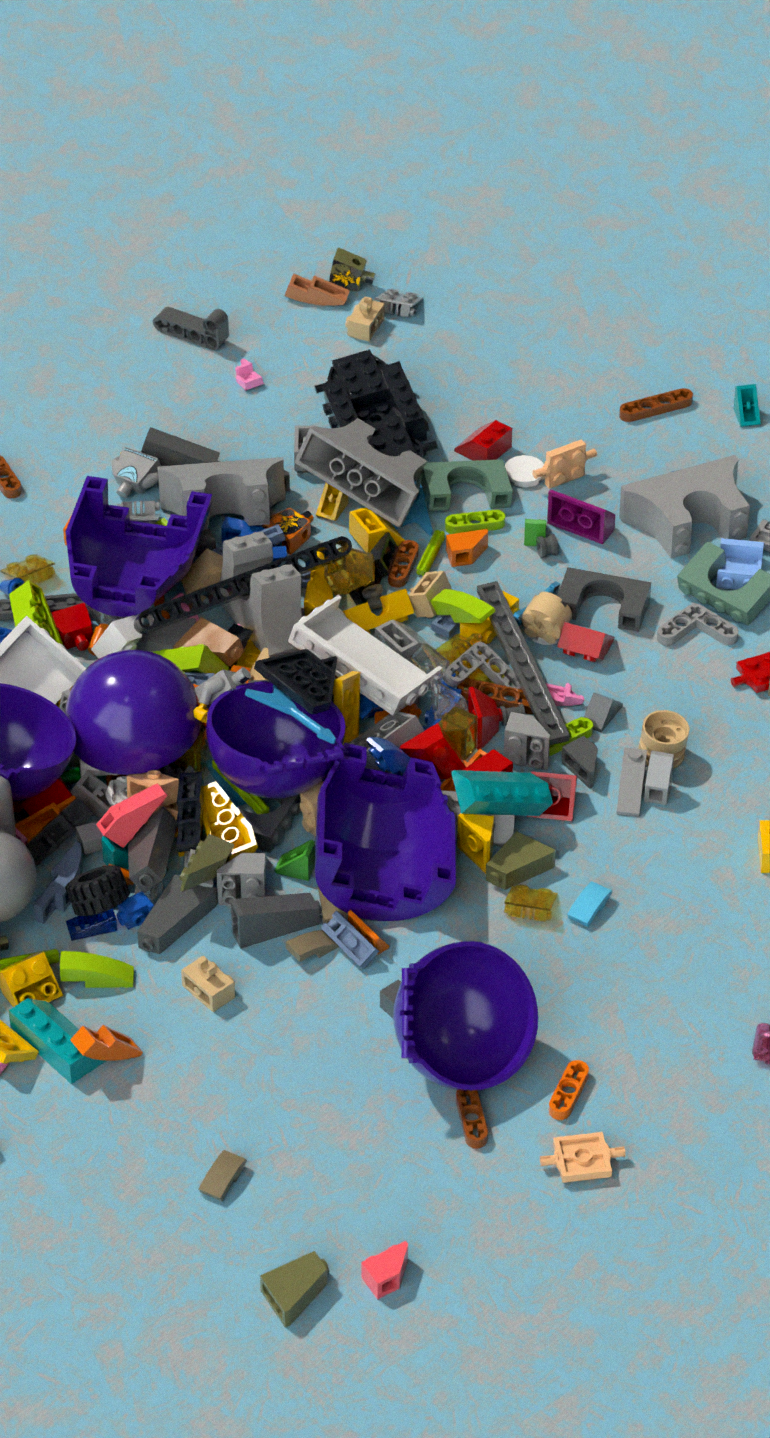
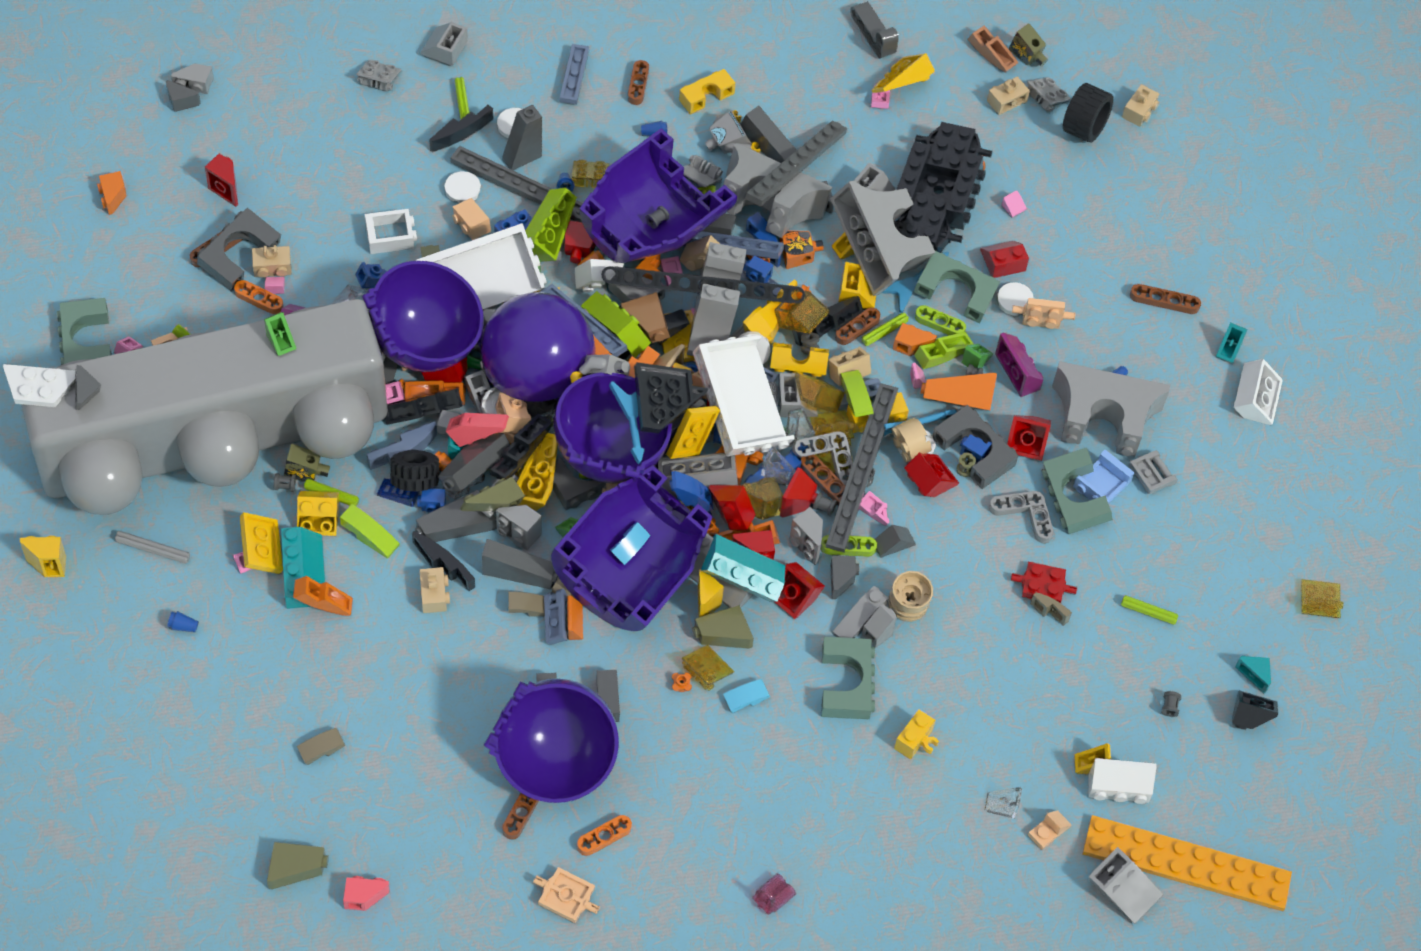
camera: 30 degrees right, 15 degrees up
(58, 504) = (651, 128): none -> blue cone
(71, 458) = (717, 83): none -> yellow arch
(137, 562) = (657, 217): none -> dark grey bush
(182, 952) = (440, 557): none -> black slope
(230, 454) = (796, 163): none -> dark grey plate
(256, 343) = (905, 72): none -> yellow wedge
(366, 838) = (631, 542): none -> medium azure slope
(427, 626) = (818, 393): none -> clear yellow slope
(451, 399) = (1013, 204): none -> bright pink slope
(456, 291) = (1088, 112): none -> black tyre
(492, 270) = (1141, 105): none -> tan brick
(496, 573) = (917, 376): none -> bright pink slope
(500, 541) = (942, 350): none -> lime slope
(519, 927) = (681, 687): none -> orange plate
(551, 559) = (962, 390): none -> orange slope
(604, 601) = (975, 446): none -> blue brick
(609, 614) = (965, 464): none -> olive bush
(645, 563) = (1029, 436): none -> red slope
(662, 814) = (858, 655): none -> sand green arch

